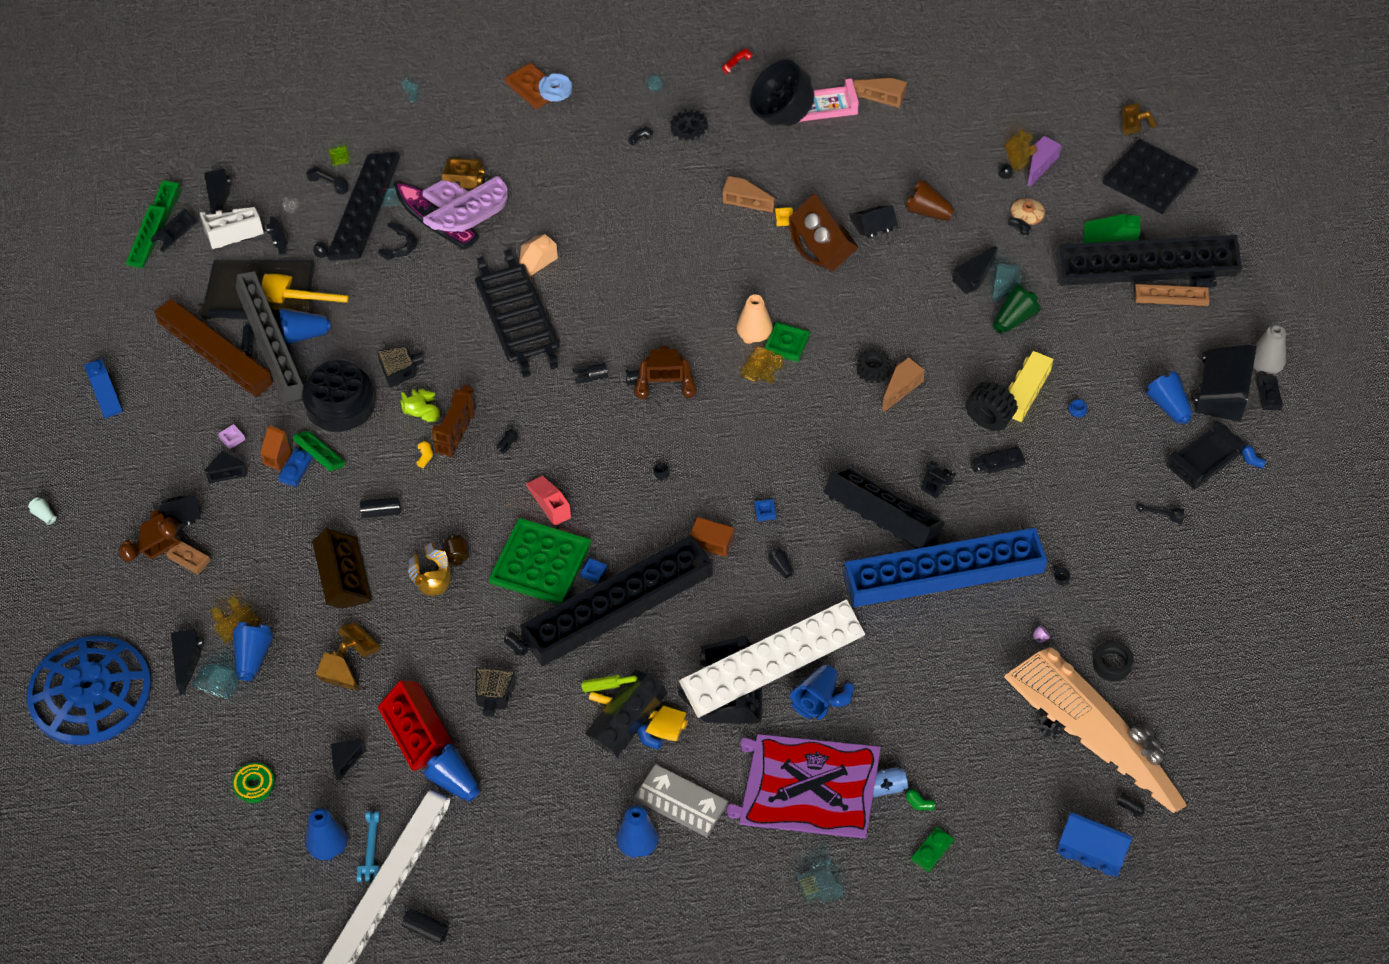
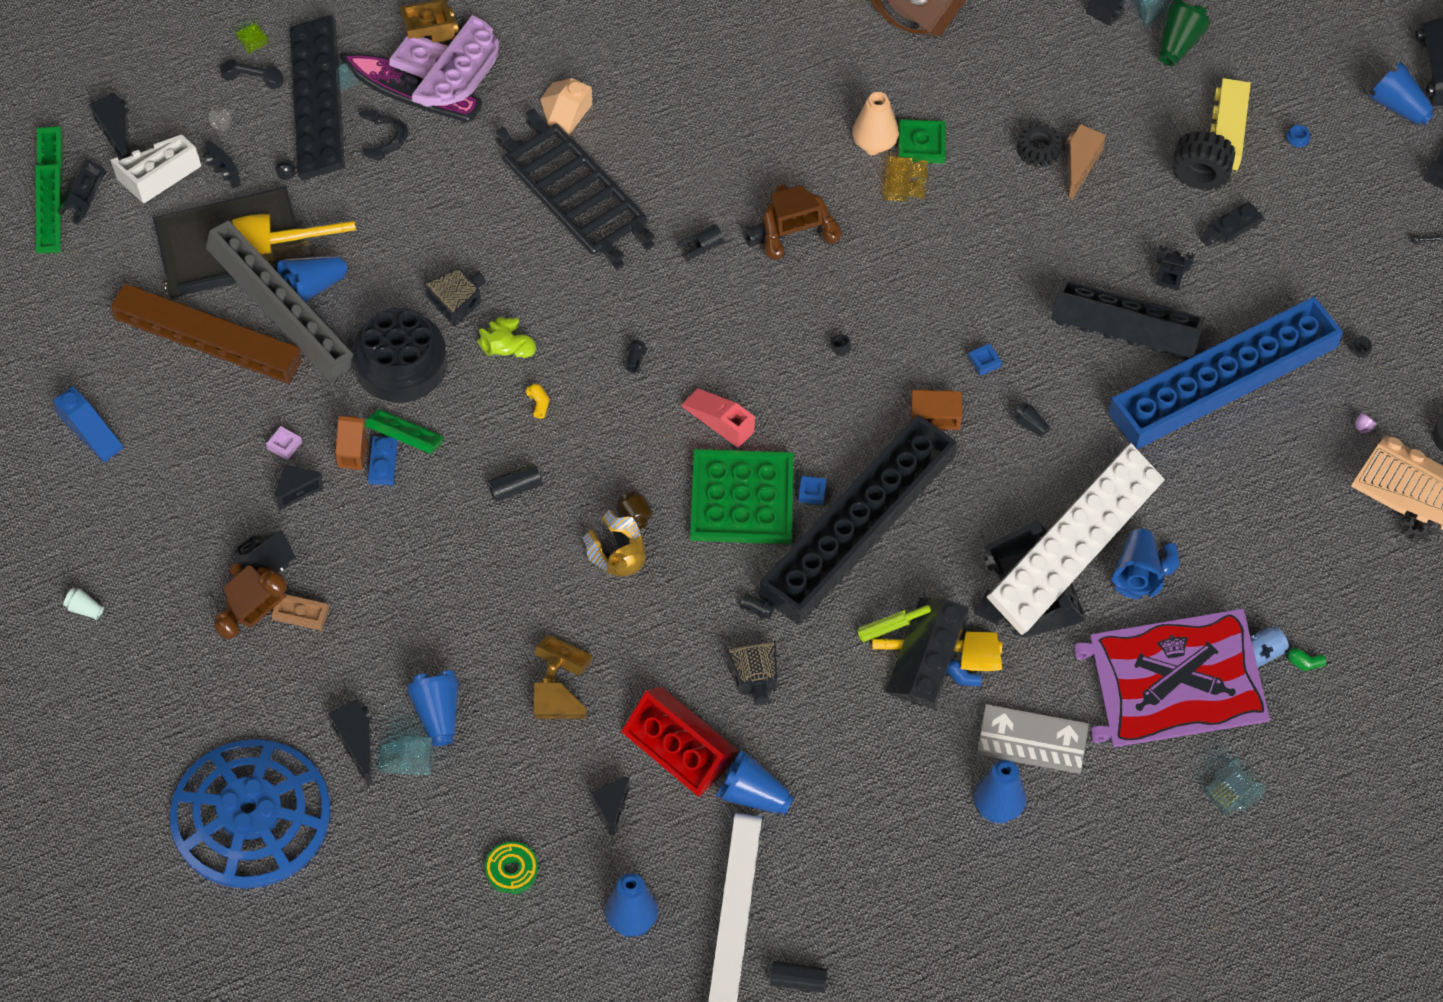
camera: 20 degrees left, 5 degrees up
(225, 627) = (394, 684): clear yellow plate -> none
(247, 340) = (244, 310): black axle -> none
(341, 569) = (501, 574): dark brown slope -> none
(369, 868) = (699, 930): dark azure hinge -> none
(450, 432) = (564, 333): reddish brown hips -> none
(932, 849) = (1342, 712): green plate -> none

